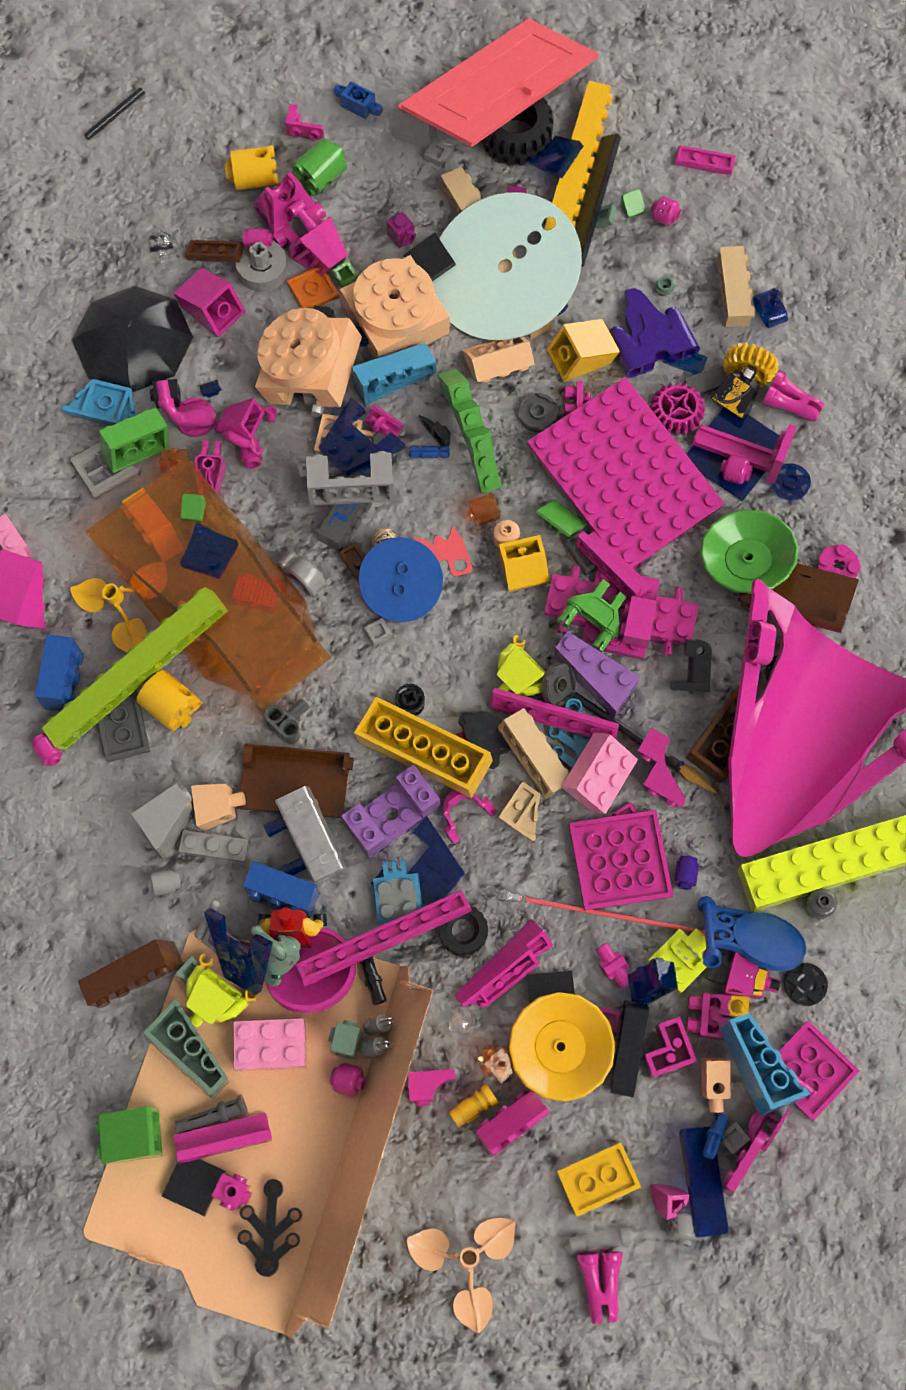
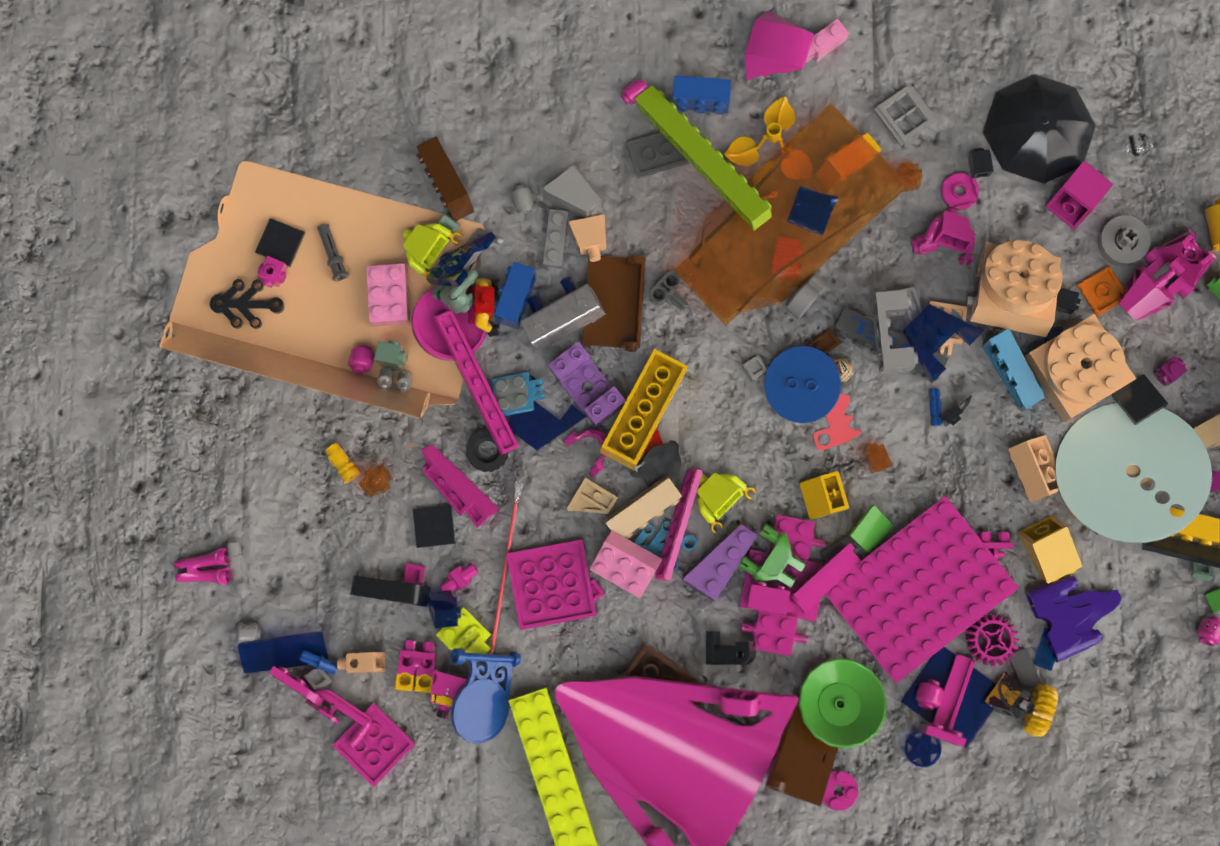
camera: 90 degrees right, 10 degrees up
(102, 403) = (967, 110): dark azure wing -> none
(129, 1135) = (314, 189): bright green slope -> none
(134, 439) = (927, 137): bright green brick -> none
(168, 700) = (680, 188): yellow cylinder -> none
(184, 1047) = (382, 228): sand green wedge -> none
(193, 507) = (854, 193): bright green slope -> none
(200, 416) = (956, 195): dark pink piece -> none
(210, 389) = (989, 203): clear blue piece -> none
(211, 466) = (905, 209): dark pink hinge -> none
(214, 251) = (1134, 195): reddish brown tile -> none
(222, 1138) = (314, 262): dark pink panel -> none
(257, 235) = (1147, 233): dark pink brick -> none
(344, 273) = (1120, 320): bright green slope -> none
(373, 981) = (442, 376): black pin -> none
(383, 422) = (960, 362): dark pink hips -> none
(410, 698) = (690, 398): black wheel -> none
(425, 1083) = (358, 422): dark pink arch -> none
(476, 436) = (958, 441): bright green arch -> none
(494, 1236) = (240, 482): light nougat plant -> none
(505, 532) = (854, 486): light nougat head -> none
(511, 1122) = (326, 492): dark pink wedge -> none
(533, 422) = (974, 515): dark grey tile -> none
(558, 673) = (707, 519): dark grey tile -> none
(586, 1039) = (369, 527): yellow dish -> none
(598, 1179) = (284, 566): yellow plate -> none
(660, 778) = (623, 620): dark pink arch -> none
(665, 281) = (1122, 630): sand green plate -> none
(668, 1199) = (268, 623): dark pink brick -> none
(675, 1052) = (383, 628): dark pink brick -> none
(686, 872) = (541, 642): dark purple brick -> none
(687, 772) = (632, 645): black piece -> none
(734, 286) = (1130, 698): tan brick -> none
(761, 1066) = (369, 698): dark azure wedge -> none
(770, 308) = (1108, 733): clear blue beam -> none
(787, 396) = (1020, 746): dark pink piece -> none
(806, 984) = (447, 745): black wheel -> none
(815, 900) = (522, 762): dark grey head -> none

